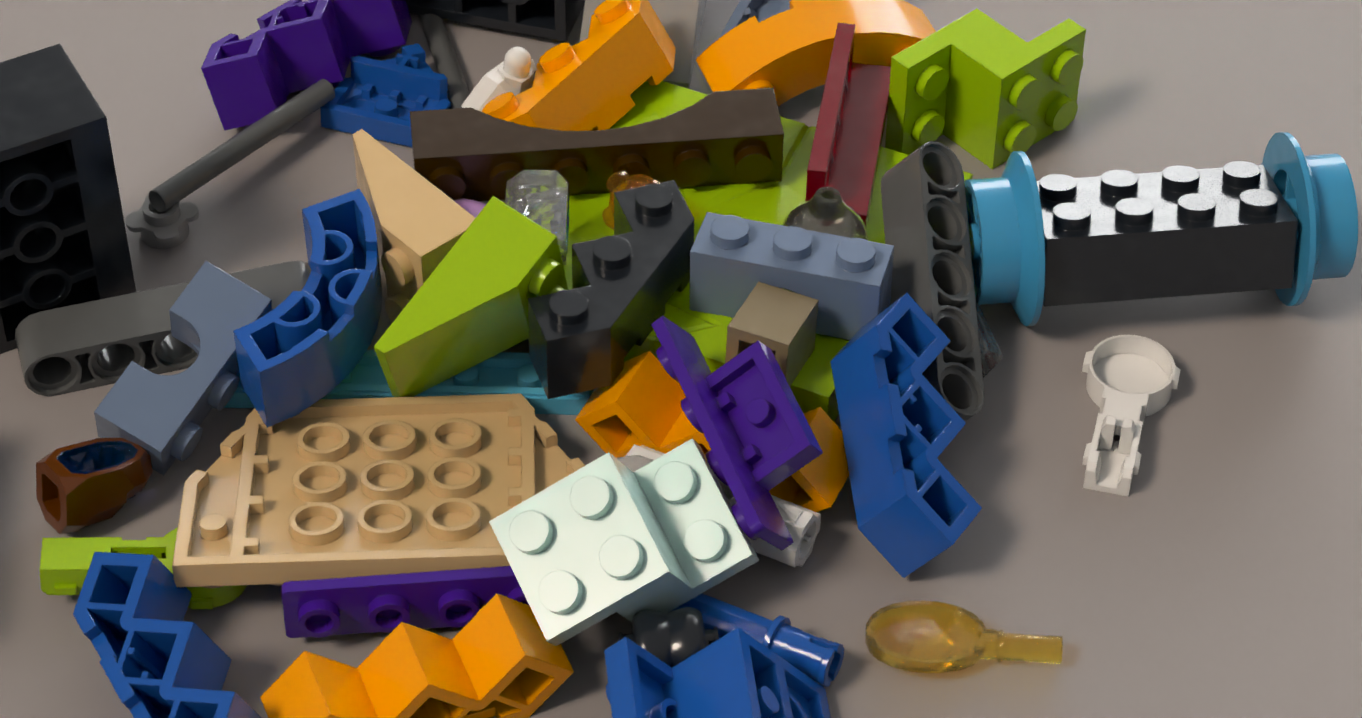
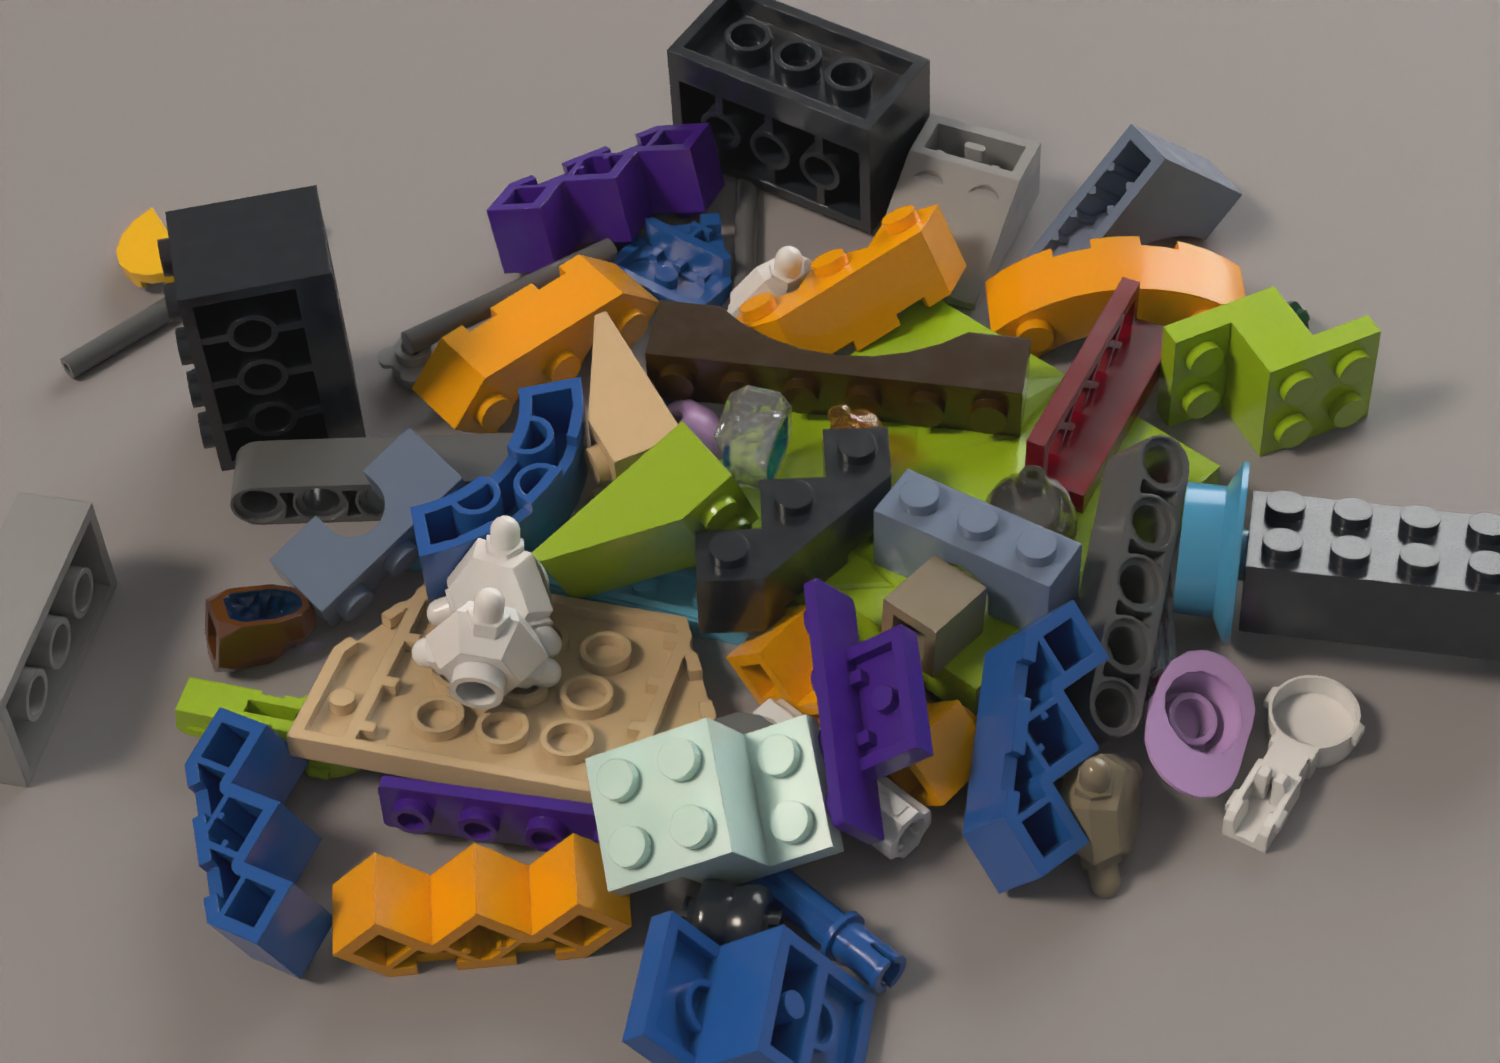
camera: 20 degrees right, 5 degrees up
(280, 172) = (530, 342): none -> light orange brick
(343, 398) = (507, 567): none -> white rock
(350, 447) = (486, 652): none -> white rock
(947, 638) = (1016, 970): clear yellow piece -> none
(979, 467) = (1107, 807): none -> dark tan rock
(1036, 390) = (1199, 723): none -> lavender piece

